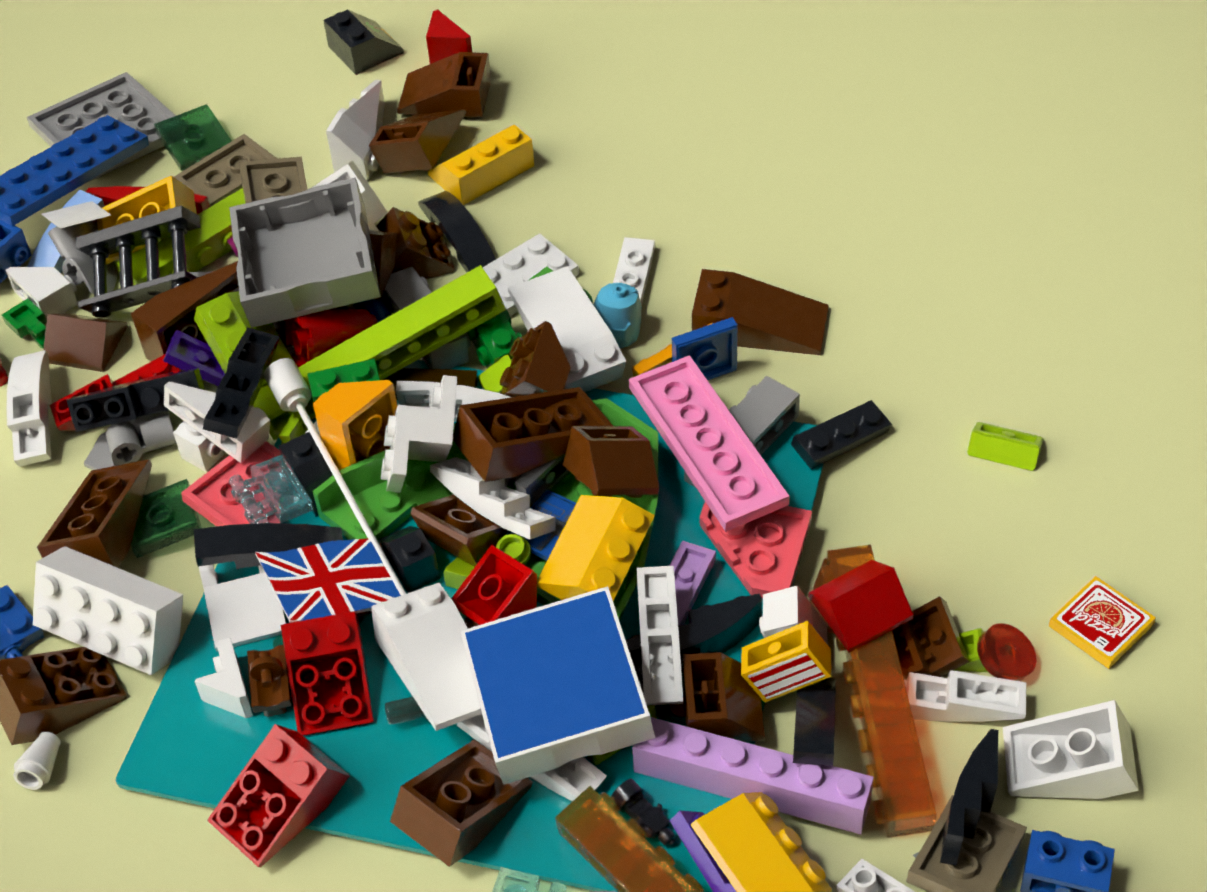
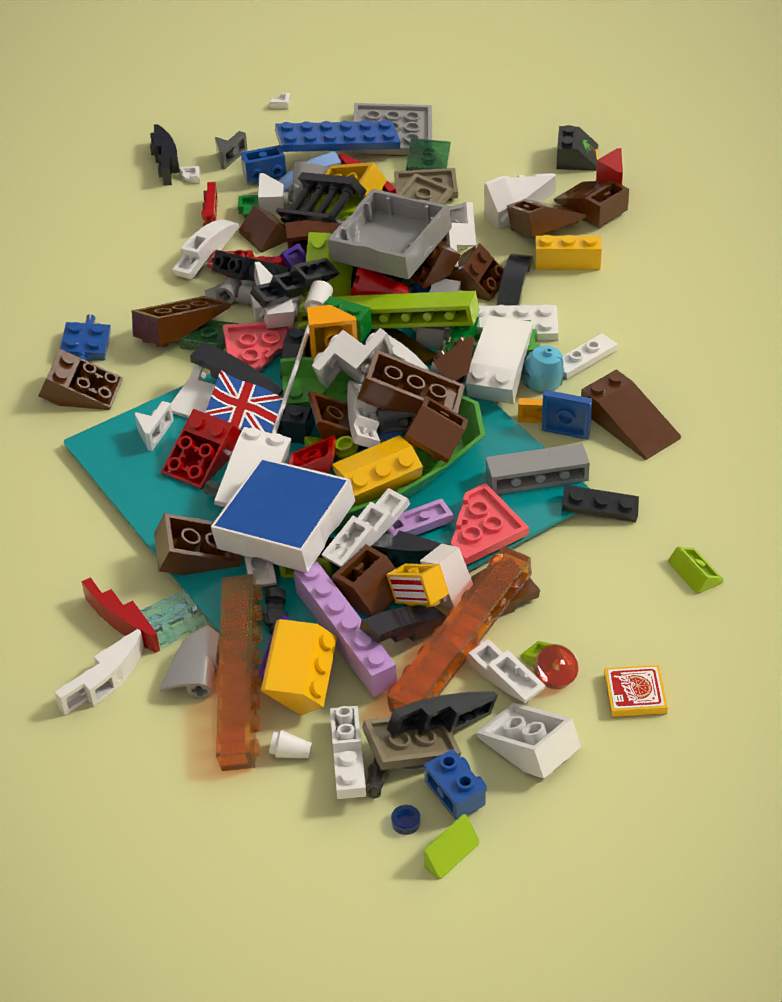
camera: 40 degrees right, 5 degrees down
(37, 762) = (41, 410): white cone -> none
(76, 214) = (315, 161): white sticker -> none
(107, 609) = (133, 358): white brick -> none
(269, 681) = (166, 436): reddish brown hips -> none
(277, 794) = (122, 488): red slope -> none
(280, 488) = (268, 351): clear light blue plate -> none
(708, 443) = (503, 454): bright pink plate -> none
(863, 604) = (487, 582): red slope -> none
(930, 641) = (518, 630): reddish brown slope -> none

